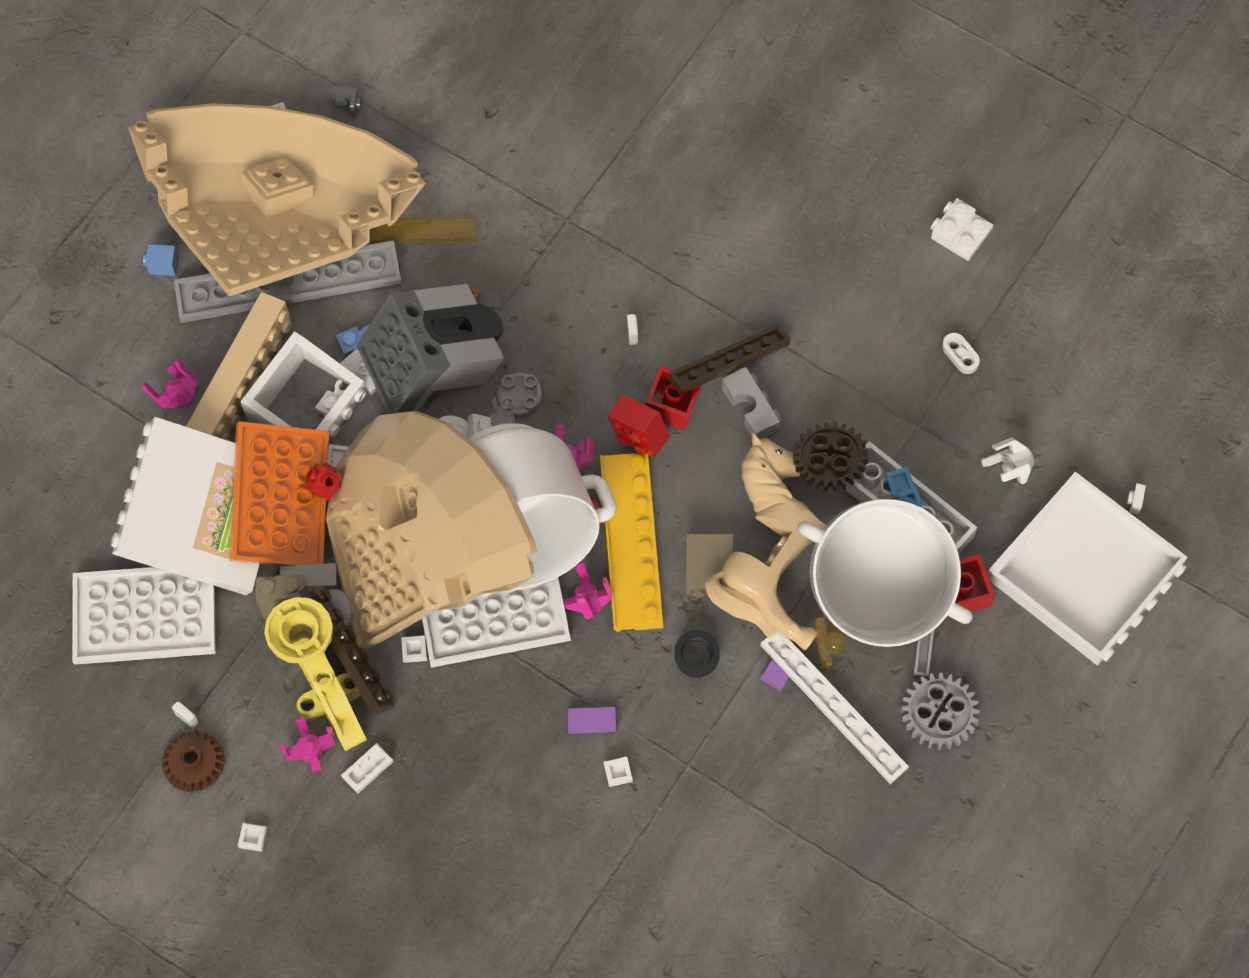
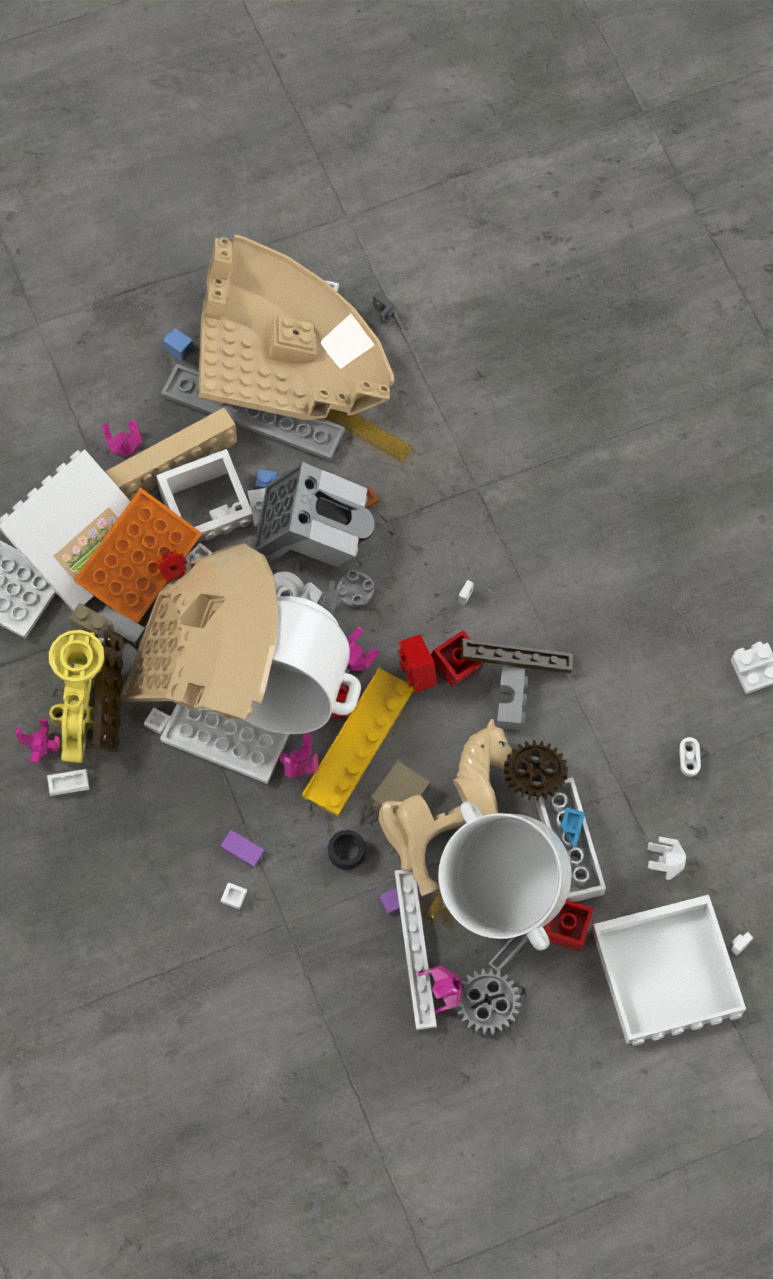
camera: 30 degrees right, 0 degrees up
(894, 720) = (446, 986): none -> dark pink piece

